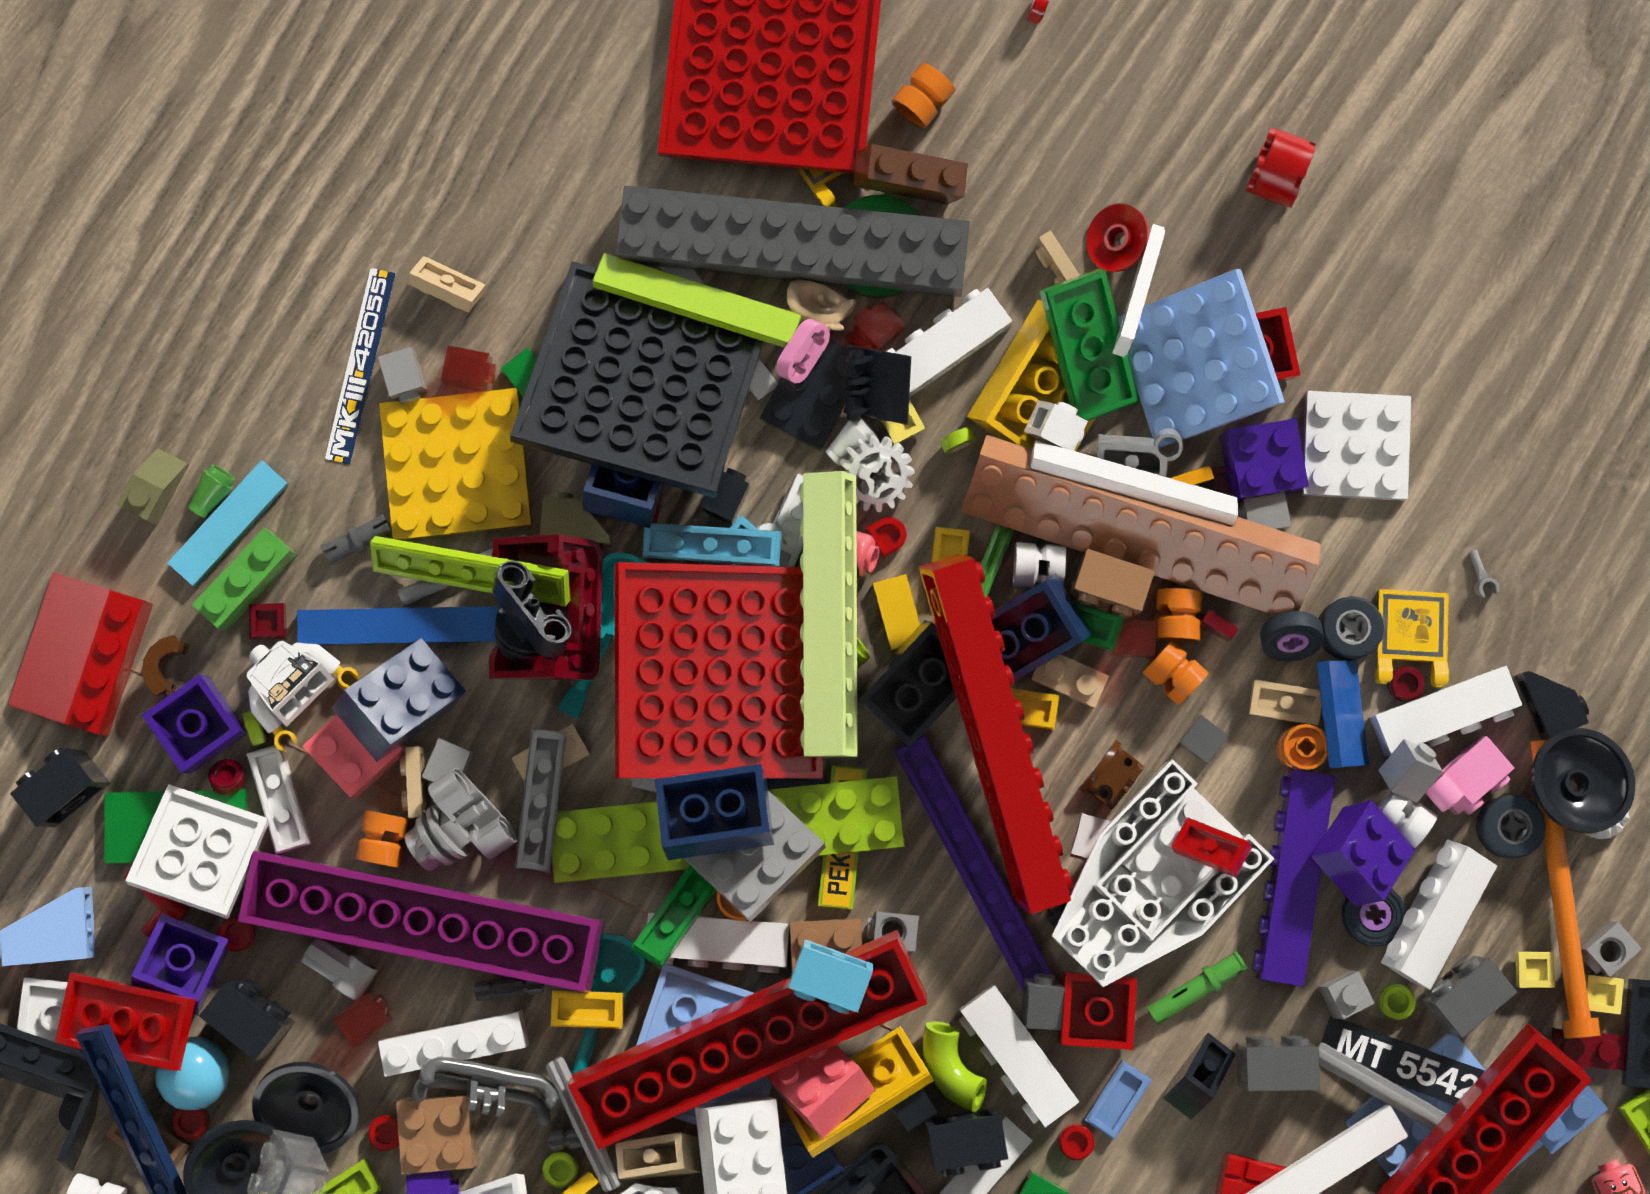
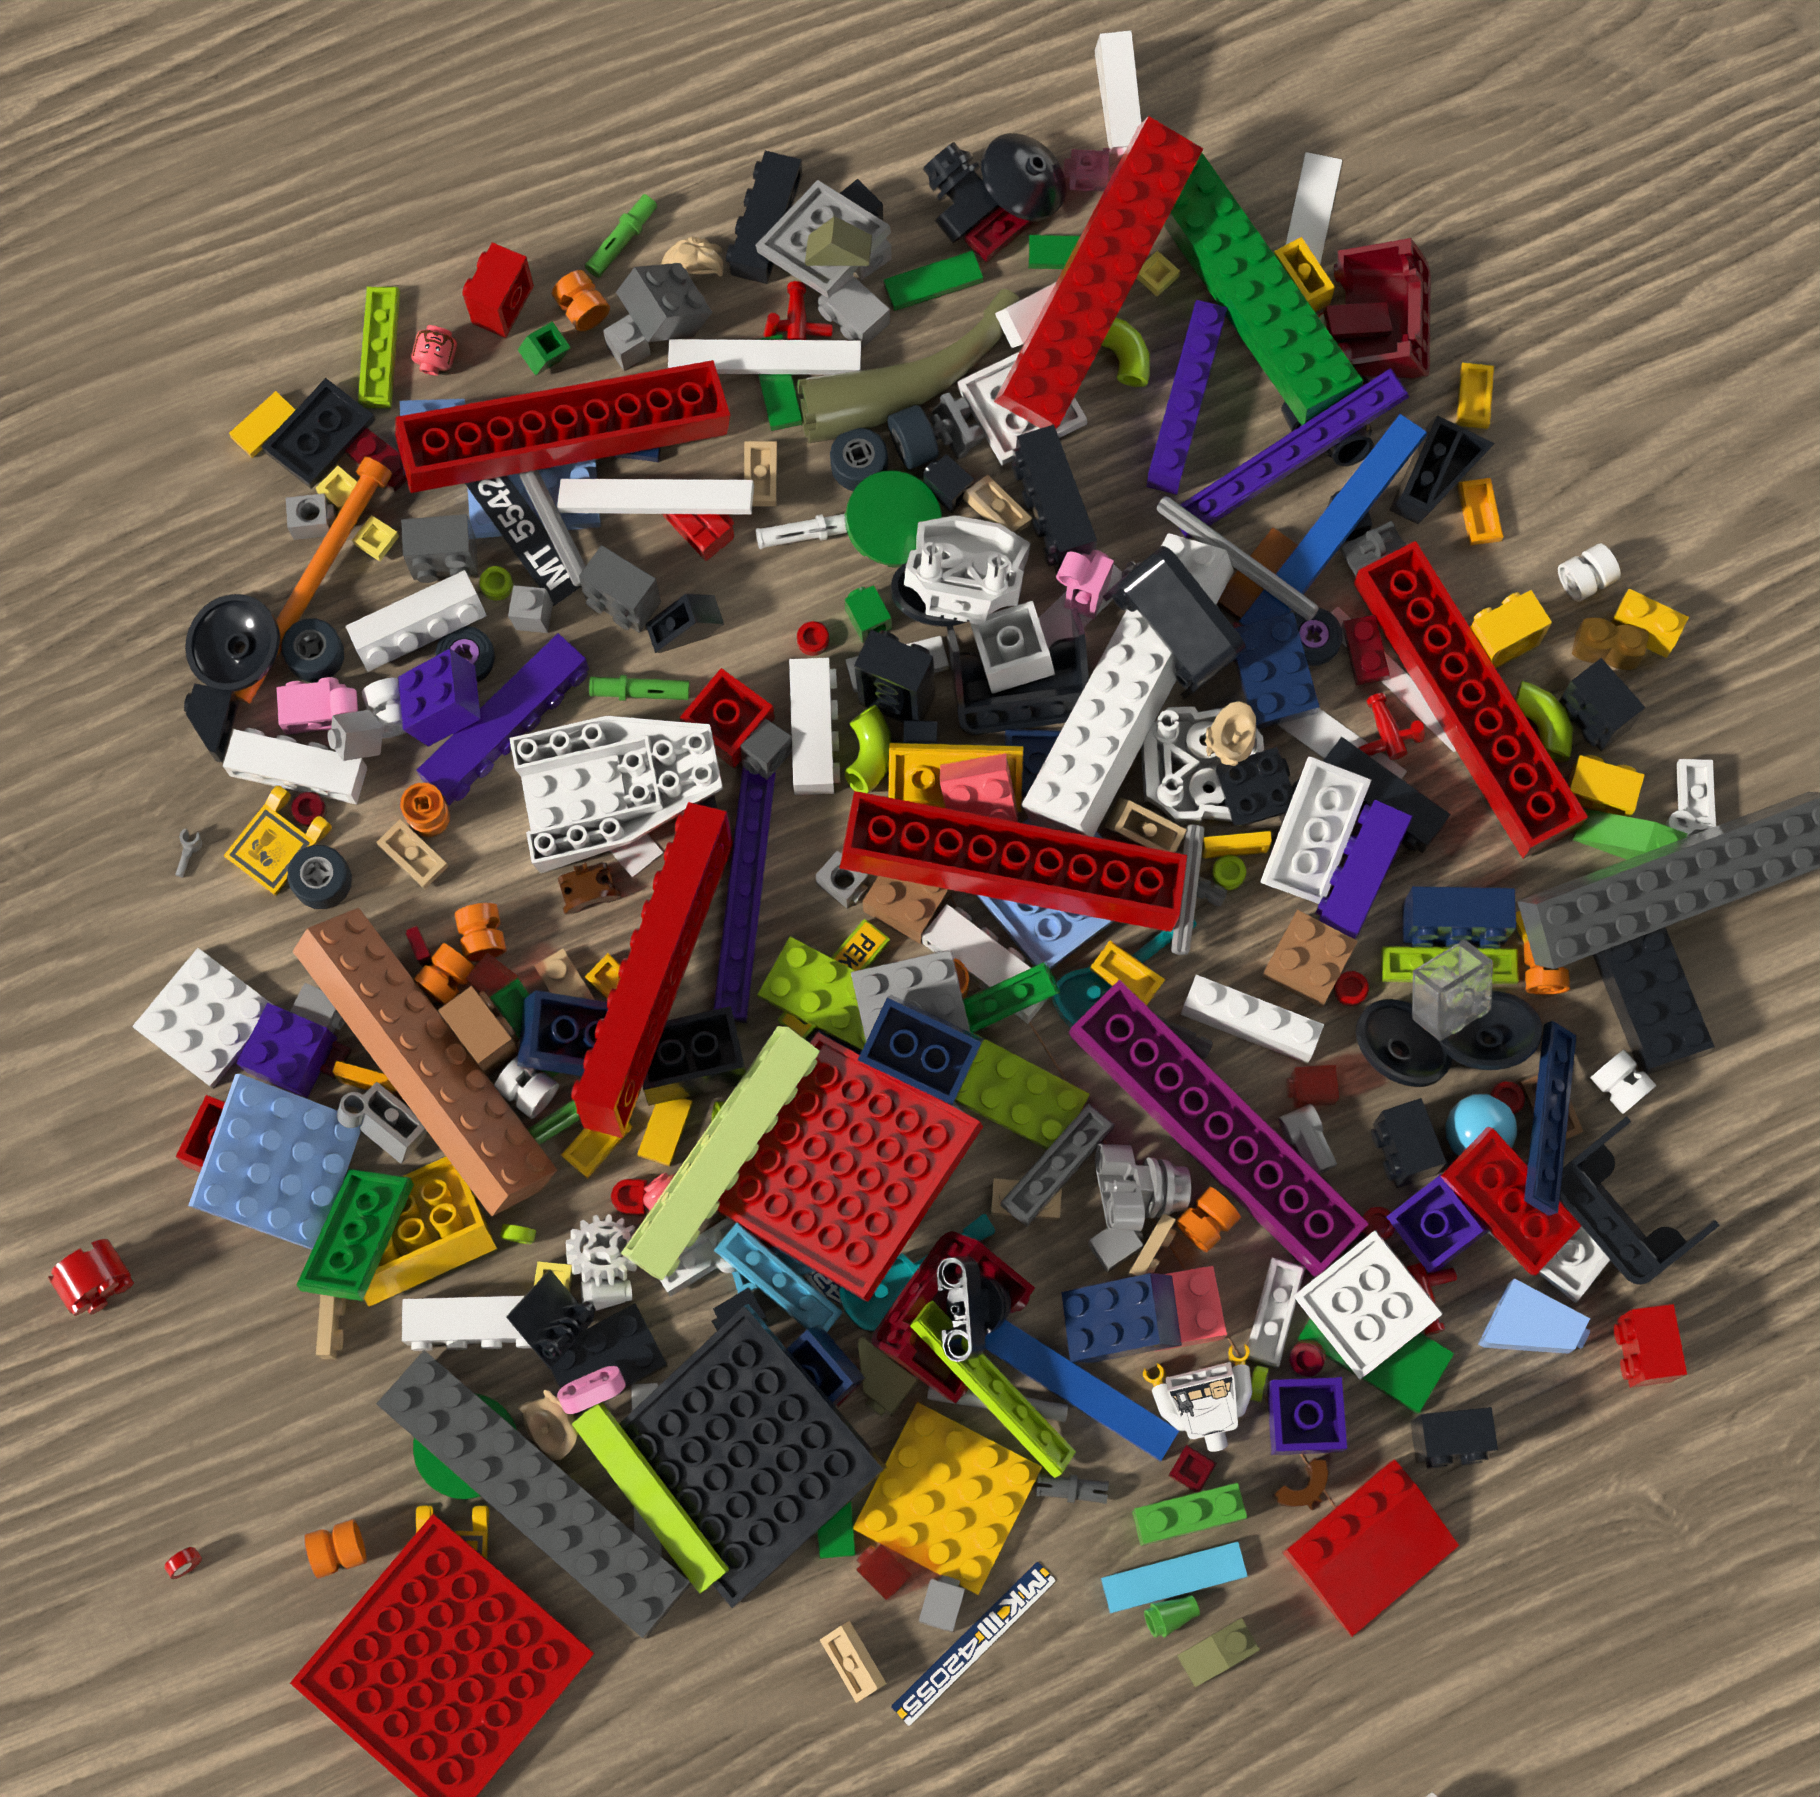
camera: 145 degrees left, 10 degrees down
(488, 1086) = (1245, 964): dark grey piece -> none
(830, 977) = (914, 854): medium azure brick -> none
(875, 327) = (518, 1372): clear red brick -> none
(910, 174) = (396, 1482): reddish brown brick -> none
(1056, 425) = (429, 1186): white brick -> none
(1105, 236) = (276, 1325): red dish -> none
(1117, 1099) = (759, 648): medium blue tile -> none
(1134, 483) = (403, 1094): white tile -> none
(1139, 292) = (281, 1252): white tile -> none
(1203, 739) = (496, 869): dark grey tile -> none
(1211, 847) = (551, 775): red plate -> none
(1291, 636) = (369, 898): black bush -> none
(1342, 714) = (375, 812): blue tile -> none

